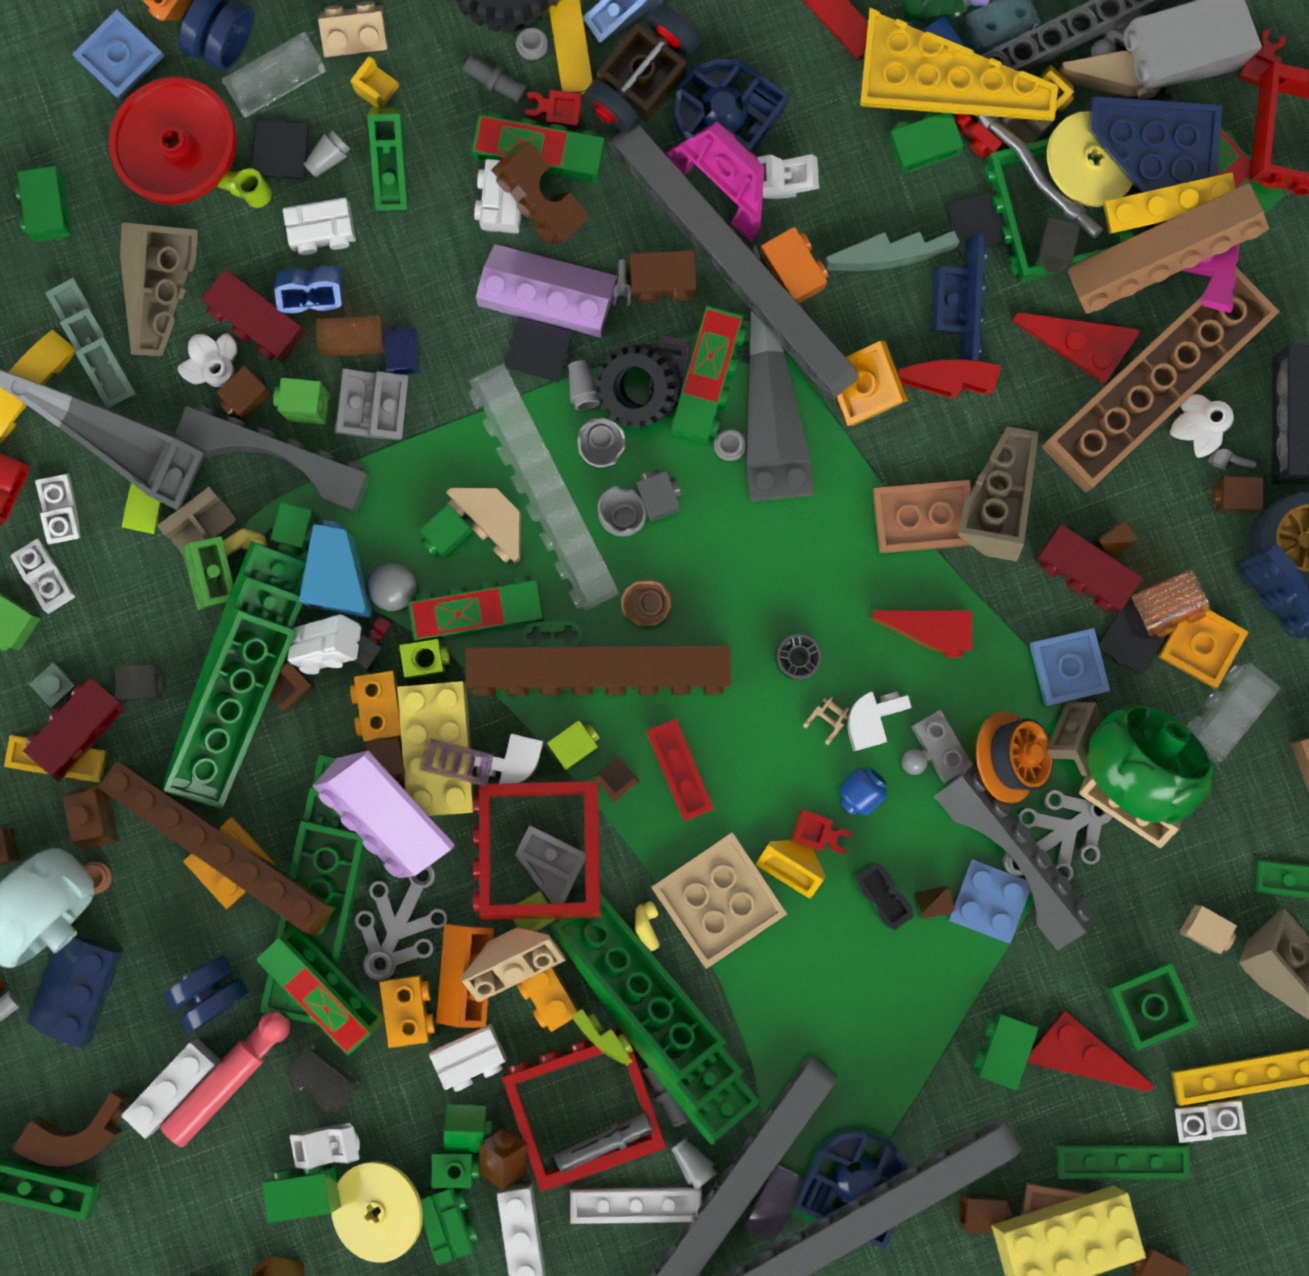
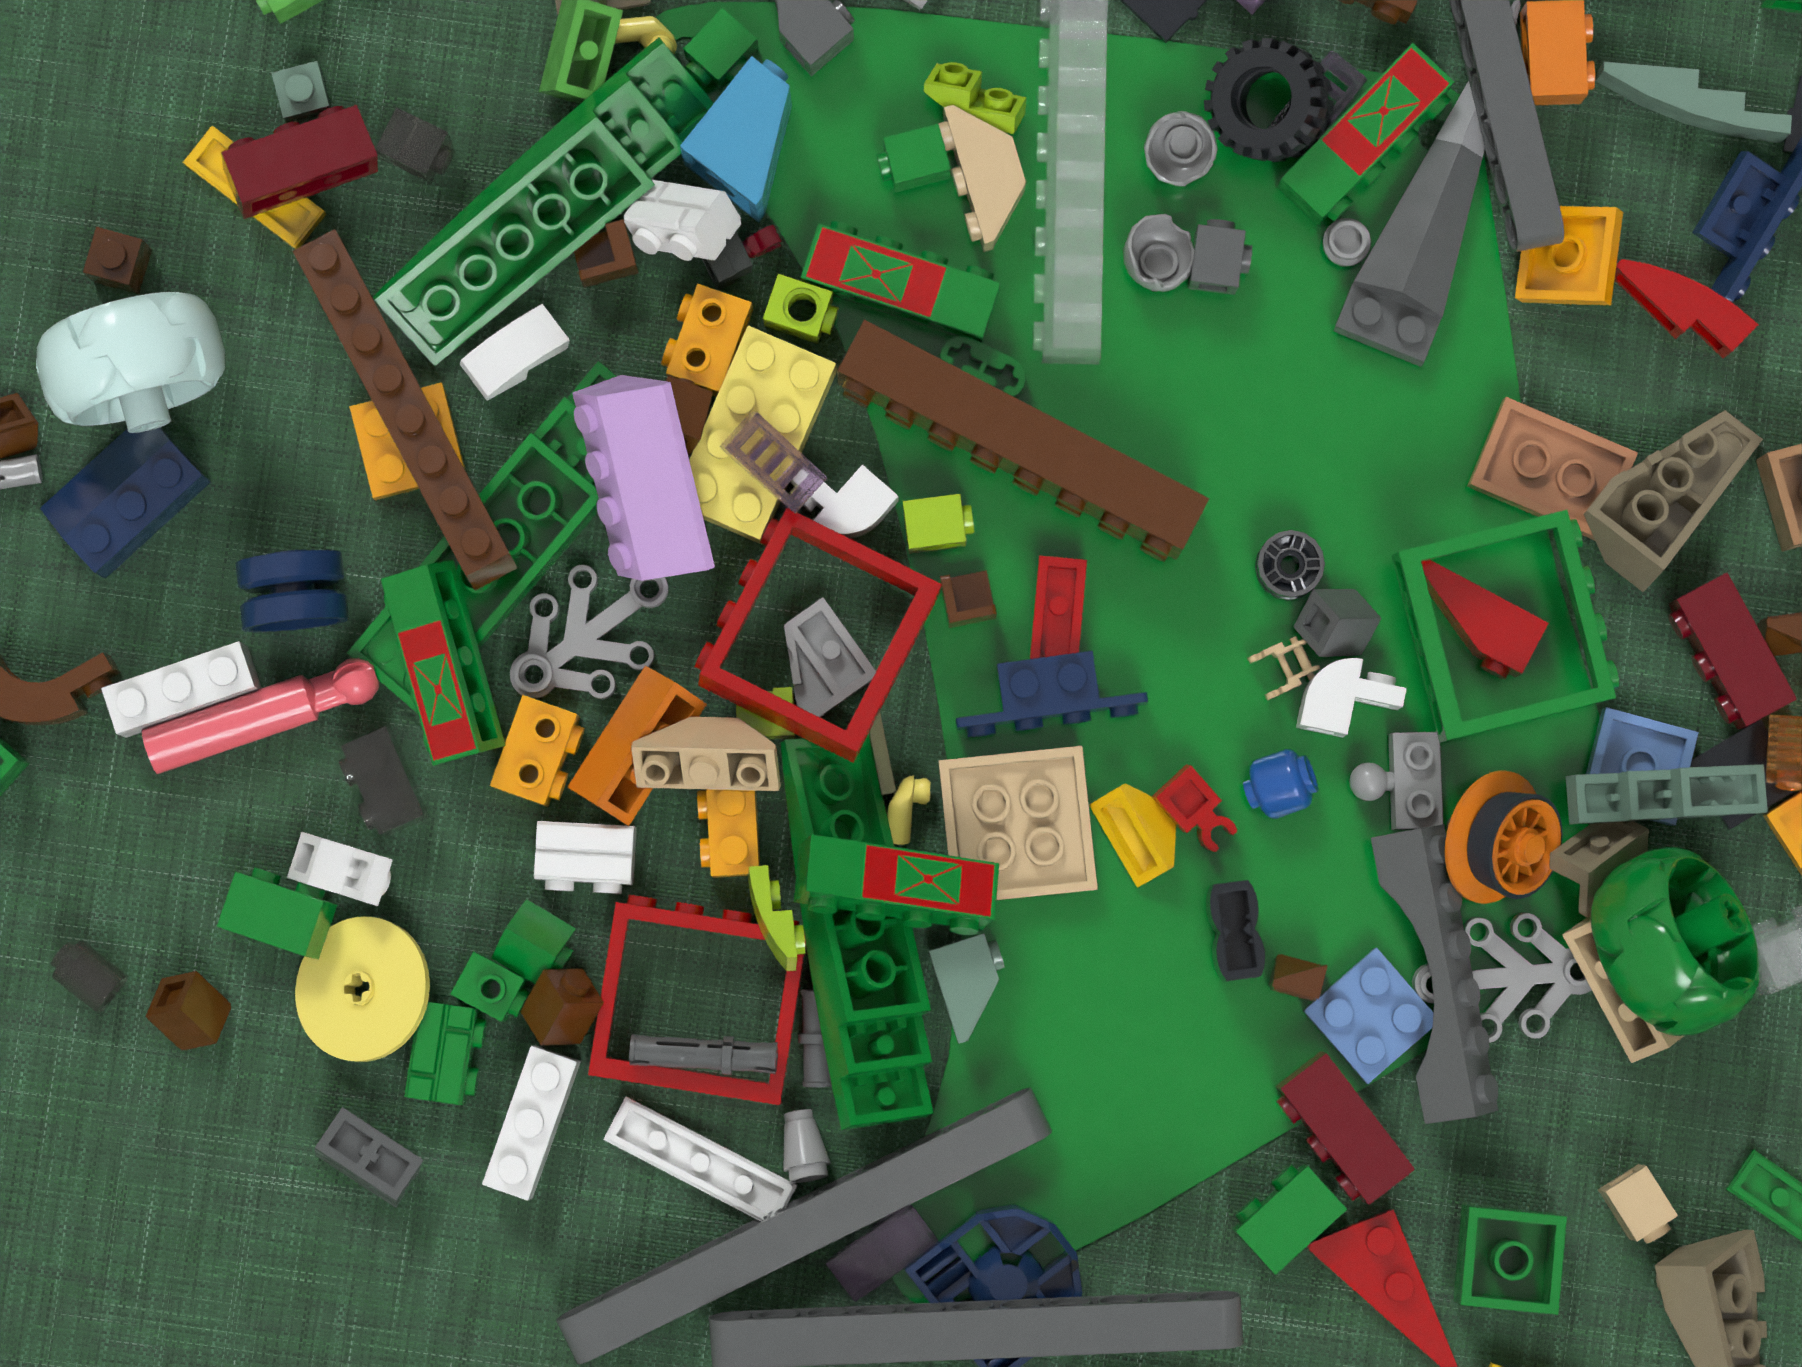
camera: 25 degrees right, 0 degrees up
(90, 817) = (262, 286): reddish brown torso -> none
(100, 874) = (235, 370): nougat plate -> none
(264, 775) = (514, 350): none -> white slope
(391, 586) = (807, 193): light grey hair -> none
(450, 474) = (959, 86): none -> lime slope
(582, 386) = (1194, 64): light grey cone -> none
(615, 903) = (881, 758): none -> olive piece
(646, 602) = (1128, 389): medium nougat hair -> none
(665, 978) = (896, 884): none -> green brick
(693, 809) = (1049, 689): none -> dark blue bracket
(737, 1010) = (967, 980): none -> sand green slope
(844, 676) = (1337, 622): none -> dark grey panel
(907, 661) = (1429, 643): none -> green window
(1009, 980) = (1343, 1129): none -> dark red brick
(1095, 676) = (1666, 794): none -> sand green slope

